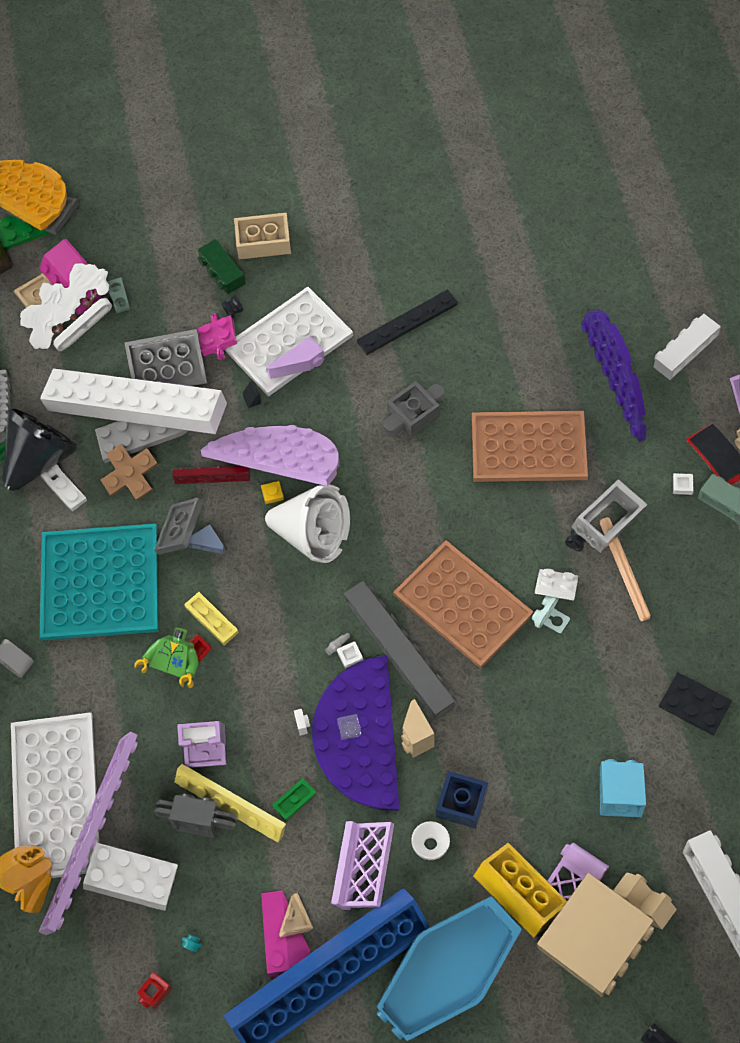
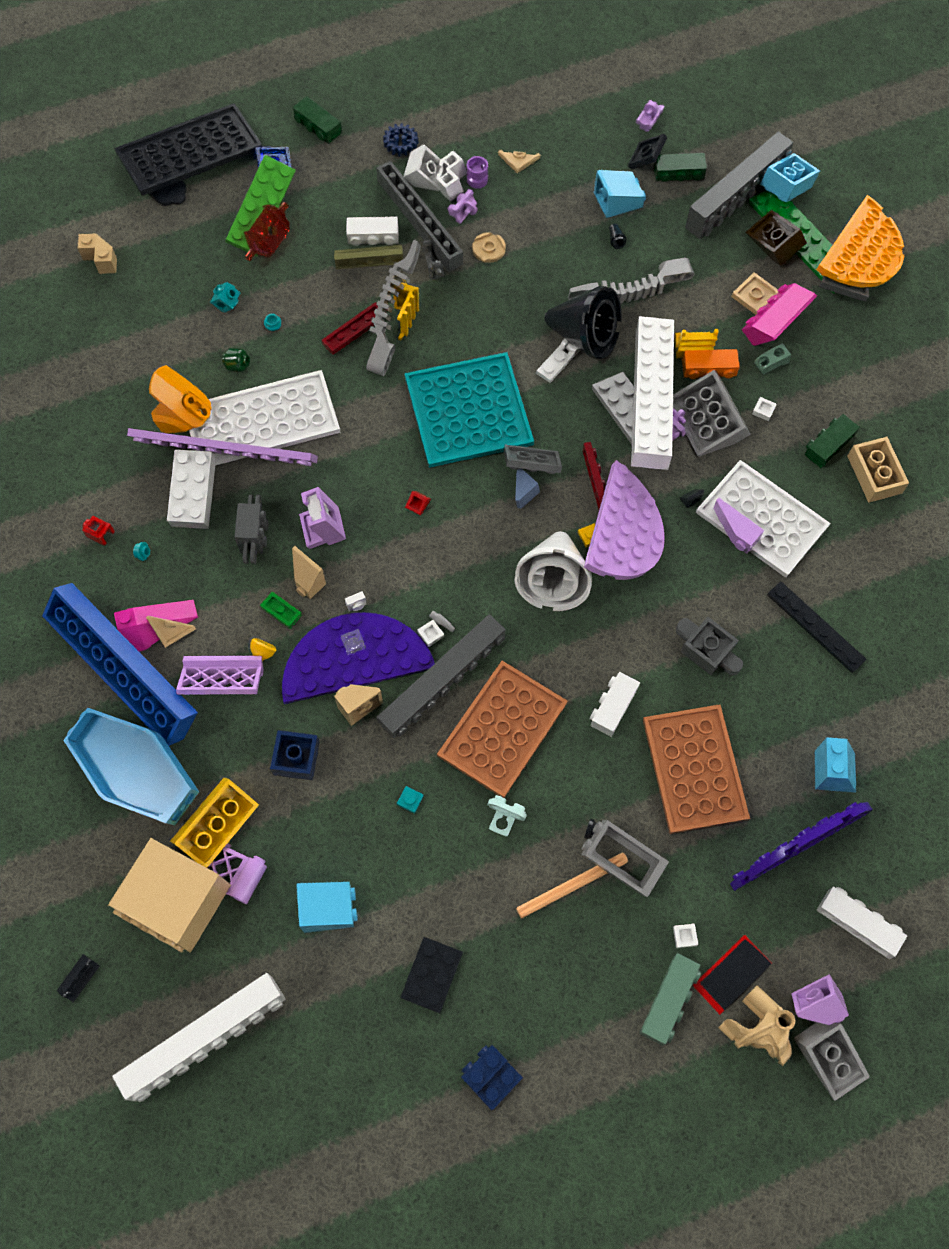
camera: 75 degrees right, 5 degrees up
(60, 305) = (742, 310): white plant -> none
(83, 356) = (694, 341): none -> yellow plate
(109, 349) = (701, 362): none -> orange brick
(129, 472) = (583, 408): medium nougat plate -> none
(171, 315) = (764, 408): none -> white plate
(172, 656) = (400, 482): bright green torso -> none
(211, 618) = (447, 507): light yellow plate -> none
(217, 336) = (749, 452): dark pink plate -> none
(230, 803) = (265, 563): light yellow plate -> none
(232, 306) = (787, 459): black wheel -> none
(260, 765) = (307, 574): none -> tan slope
(336, 823) = (261, 648): none -> yellow brick
(430, 830) = (248, 725): white piece -> none
(455, 500) = (614, 703): none -> white brick
(521, 699) = (410, 799): none -> teal plate
(546, 334) = (835, 766): none -> medium azure slope
(556, 584) = (536, 815): white plate -> none
(654, 905) = (210, 948): tan brick -> none

